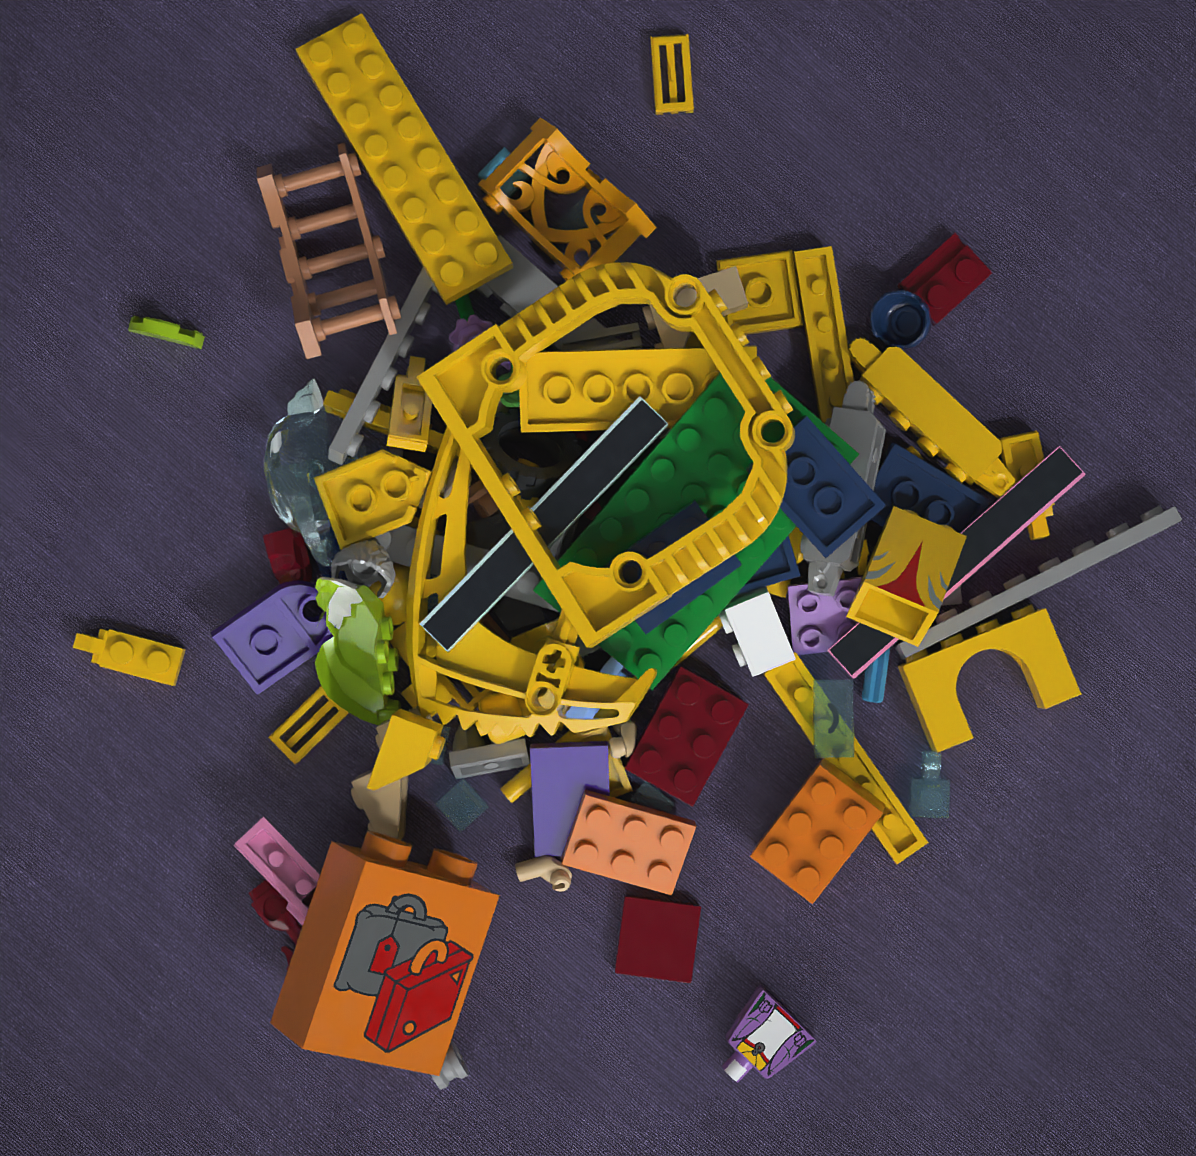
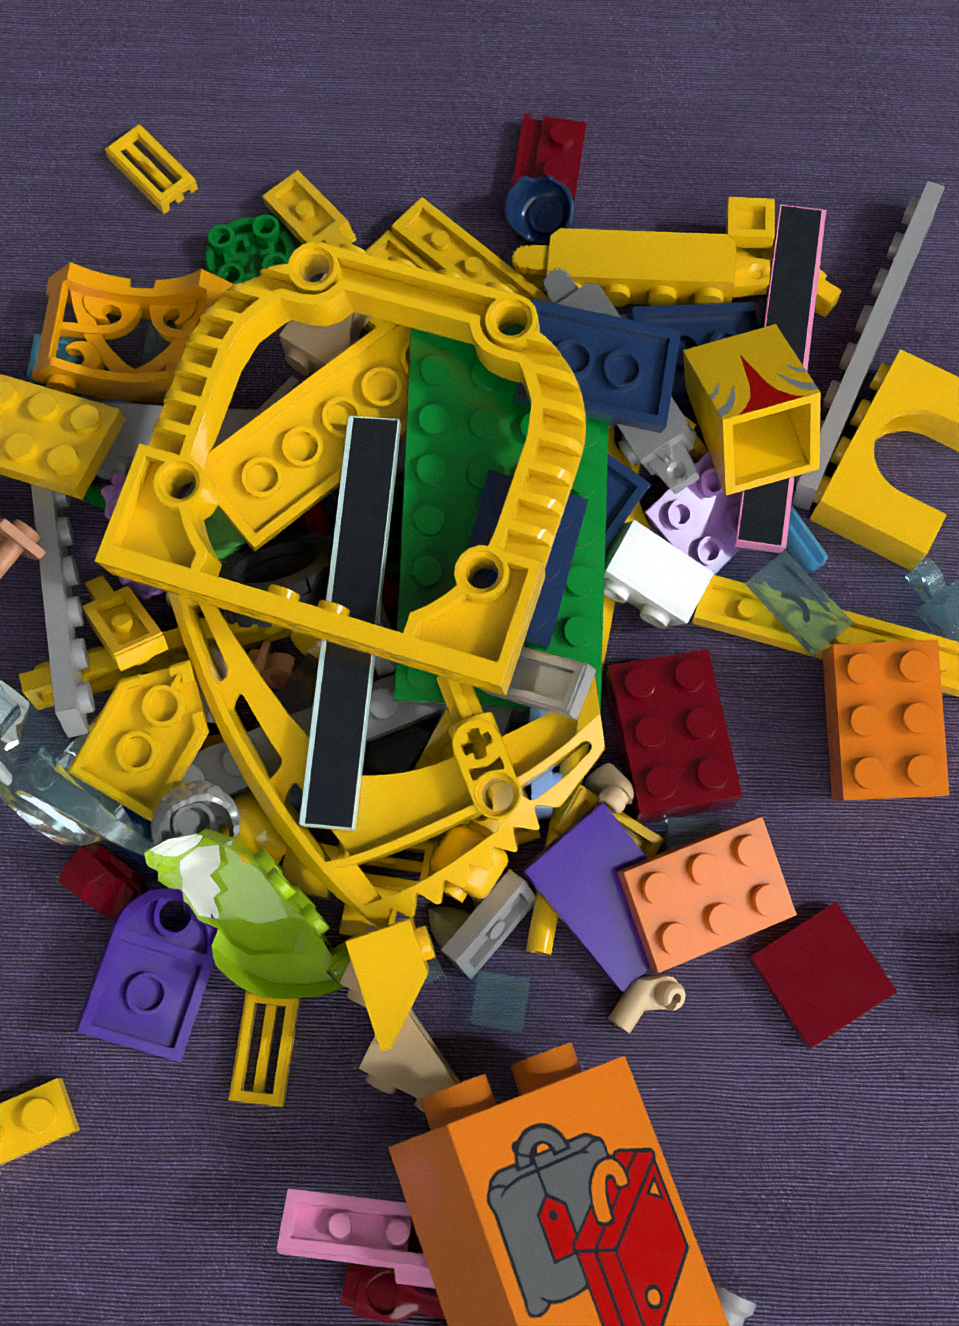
camera: 40 degrees left, 15 degrees down
(625, 660) = (549, 683): none -> light grey tile
(685, 199) = (245, 247): none -> green tile
(745, 206) = (307, 212): none -> yellow hinge
(1028, 442) = (751, 221): none -> yellow plate

